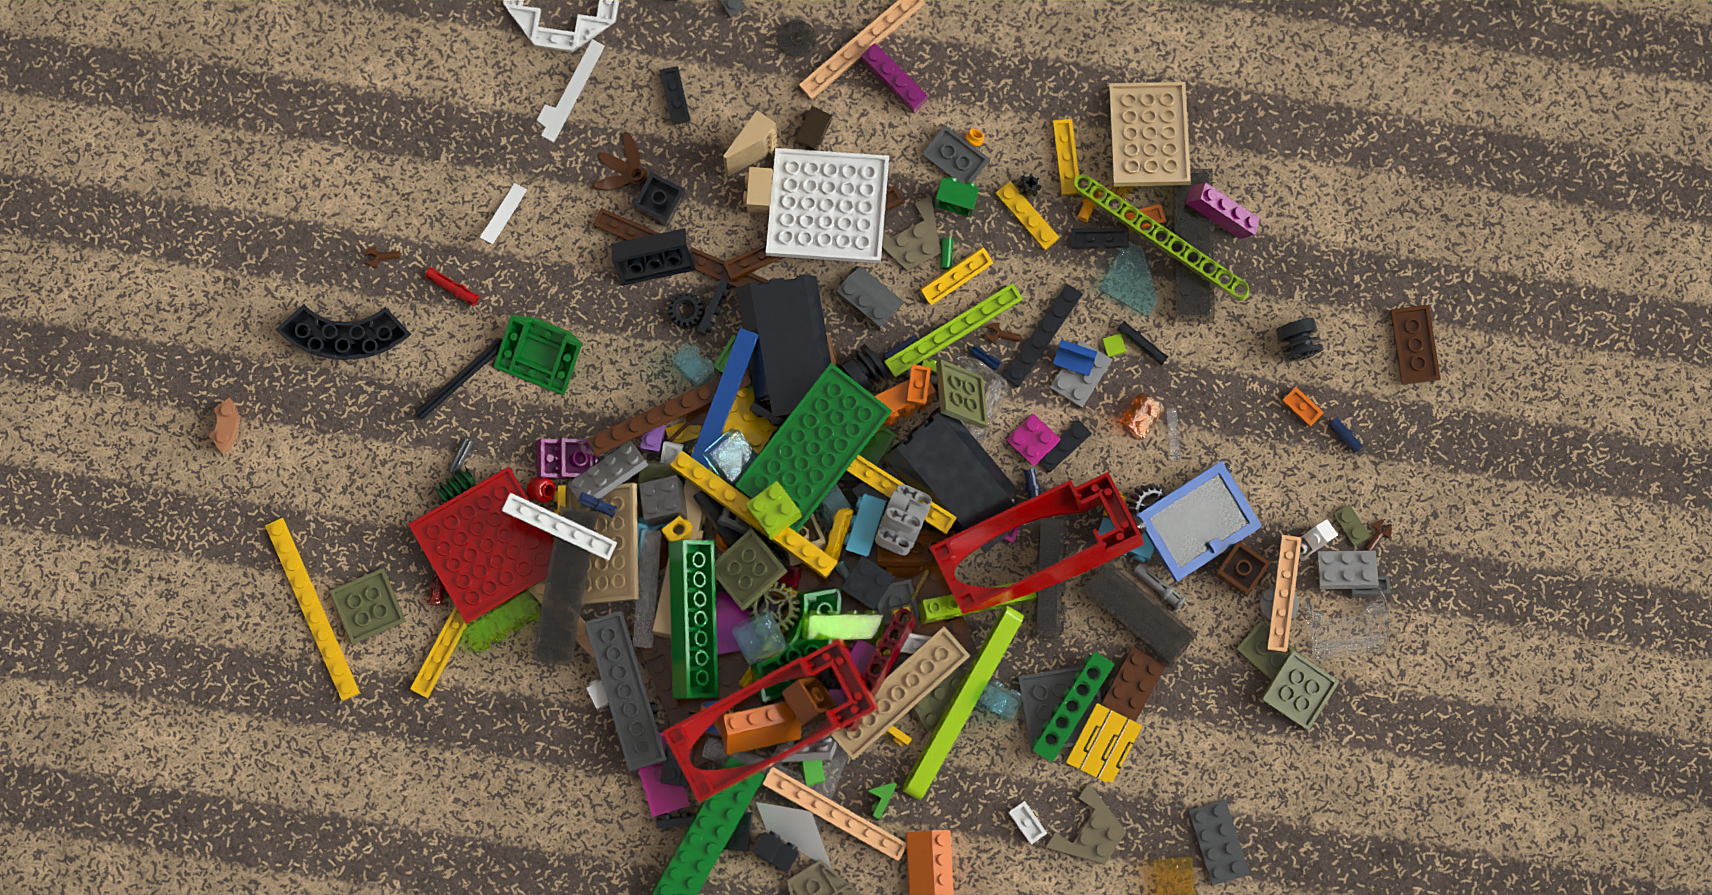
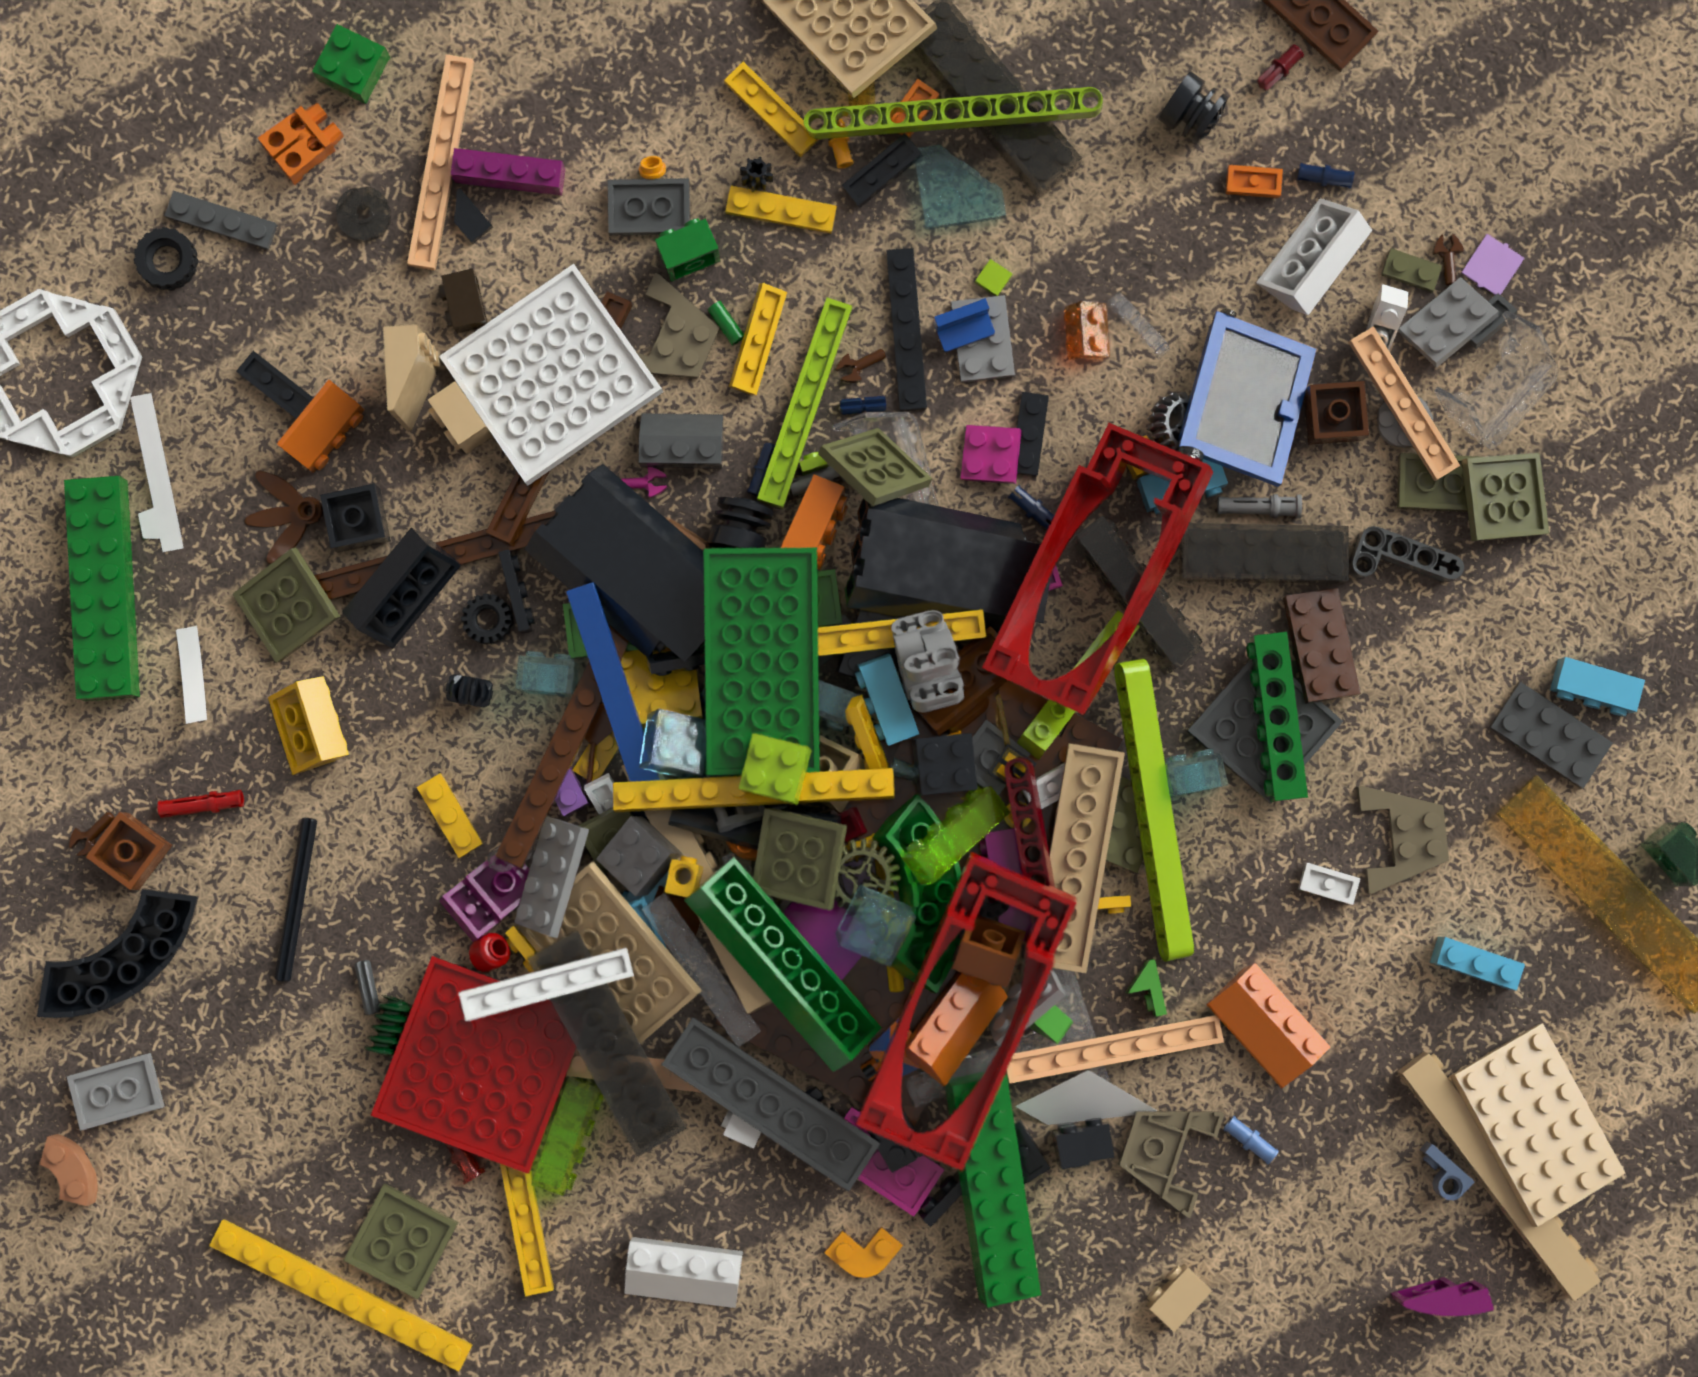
camera: 40 degrees left, 5 degrees up
(282, 403) = (115, 1091): none -> light grey plate
(394, 281) = (129, 851): none -> dark orange brick
(493, 129) = (101, 588): none -> green brick
(503, 746) = (683, 1272): none -> white slope
(538, 353) = (360, 800): green slope -> none
(543, 290) = (308, 725): none -> yellow slope
(579, 400) = (450, 815): none -> yellow plate
(584, 216) = (286, 605): none -> olive plate
(597, 504) = (567, 922): dark blue axle -> none
(606, 820) = (864, 1261): none -> light orange plate
(644, 340) = (469, 690): none -> black gear
(681, 136) = (321, 427): none -> orange slope
(830, 304) = (643, 482): none -> dark pink bar
(853, 86) = (469, 218): none -> black tile
(918, 385) = (820, 494): orange plate -> none
(1104, 743) = (1342, 728): yellow sticker -> none
(1140, 341) = (1022, 250): black pin -> none
(1216, 681) = (1407, 560): none -> dark grey beam
(1222, 210) = (995, 29): magenta brick -> none
(1265, 835) = (1597, 686): none -> medium azure brick
(1302, 474) = (1315, 255): none -> white slope
(1368, 356) = (1280, 67): none -> dark red axle
(1400, 559) = (1492, 265): none -> lavender piece

